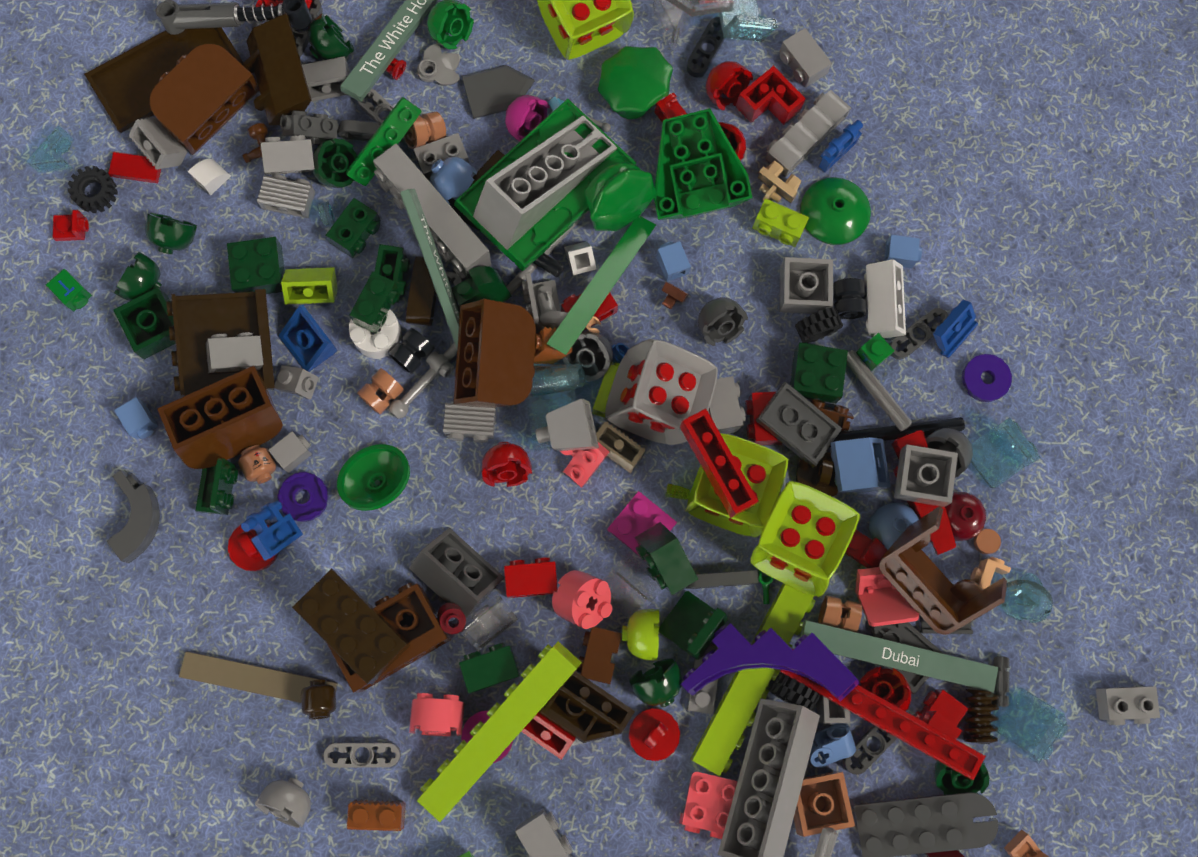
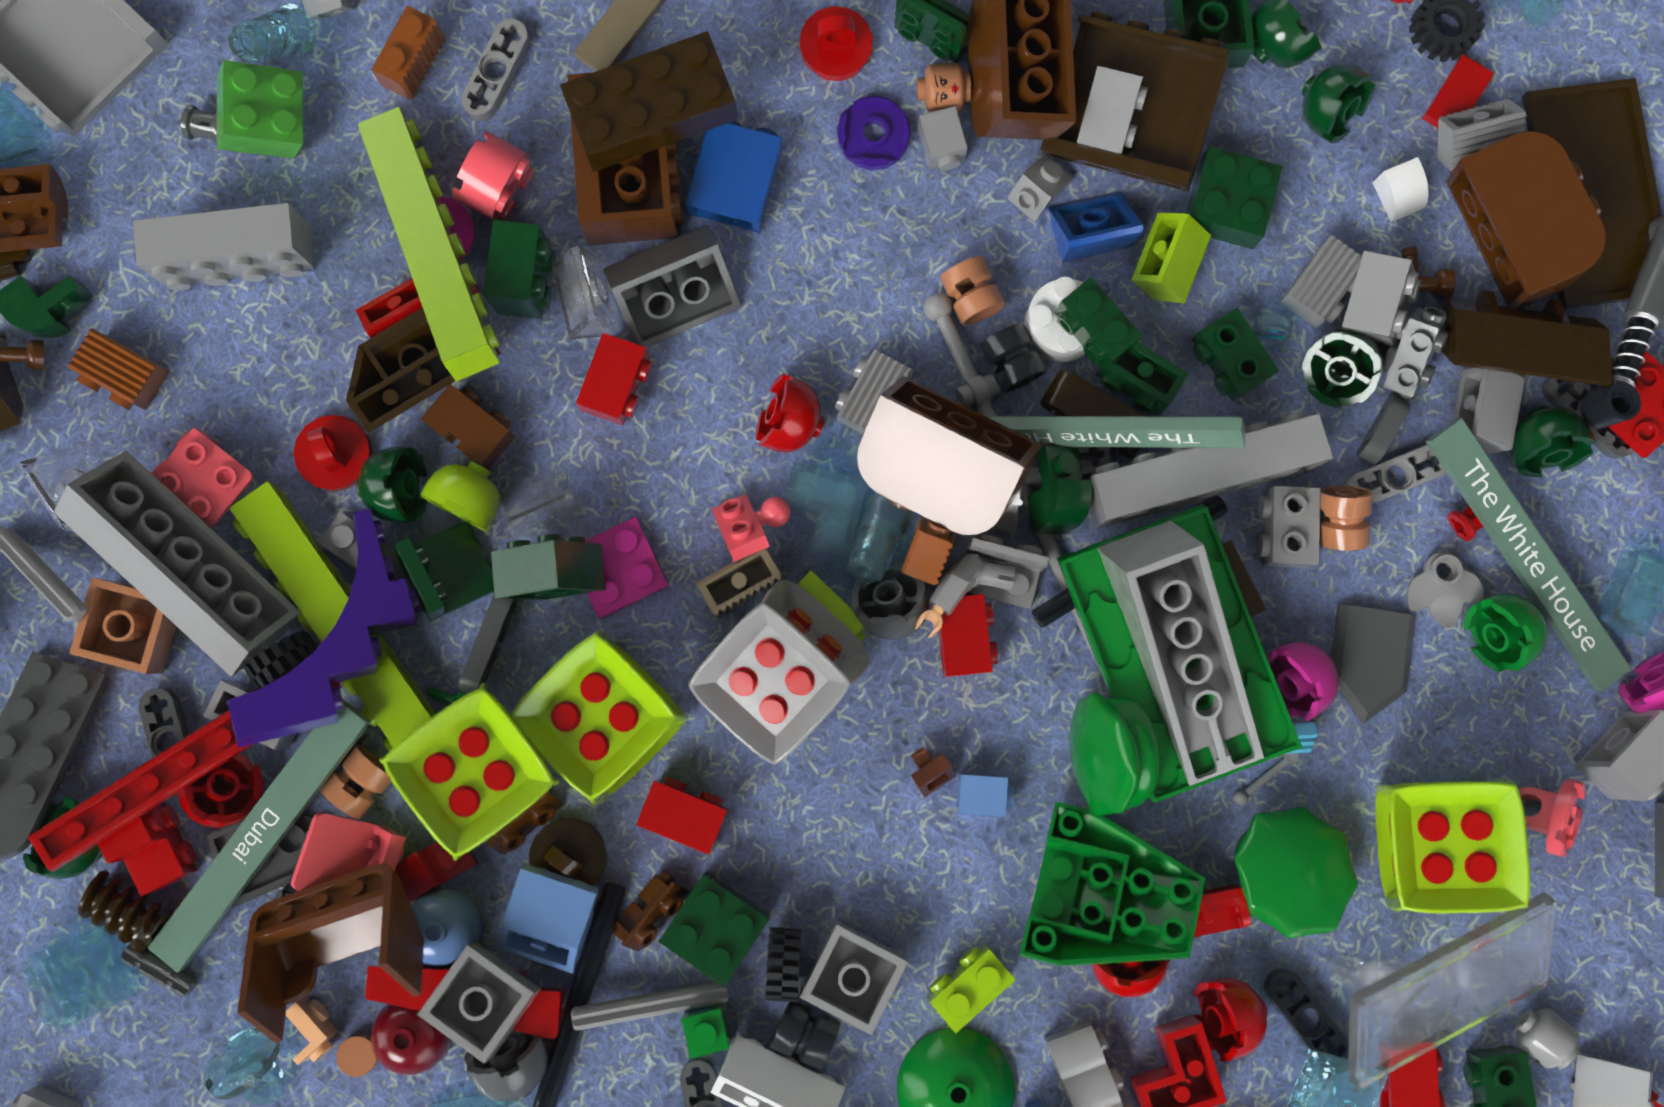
camera: 120 degrees right, 5 degrees up
(275, 537) = (830, 71): blue plate -> none
(318, 700) = (587, 37): dark brown head -> none
(369, 565) = (735, 175): none -> blue brick
(373, 477) = (864, 219): green dish -> none
(386, 136) = (1349, 447): green bracket -> none
(449, 611) = (606, 244): dark red brick -> none
(452, 177) = (1247, 519): medium blue cylinder -> none
(570, 427) = (787, 516): light grey torso -> none
(580, 258) = (1048, 660): white brick -> none
(582, 599) = (549, 432): coral brick -> none
(601, 285) = (987, 666): green sticker -> none
(619, 352) = (880, 650): blue plate -> none
(677, 492) = (642, 635): clear neon green tile -> none
(718, 463) = (622, 686): red brick -> none
(721, 320) = (859, 821): dark grey cylinder -> none
(725, 406) = (716, 752): light grey brick -> none
(770, 177) = (1051, 1010): tan hips -> none
(798, 424) = (648, 855): dark grey tile -> none
(832, 745) = (191, 680): medium blue piece -> none

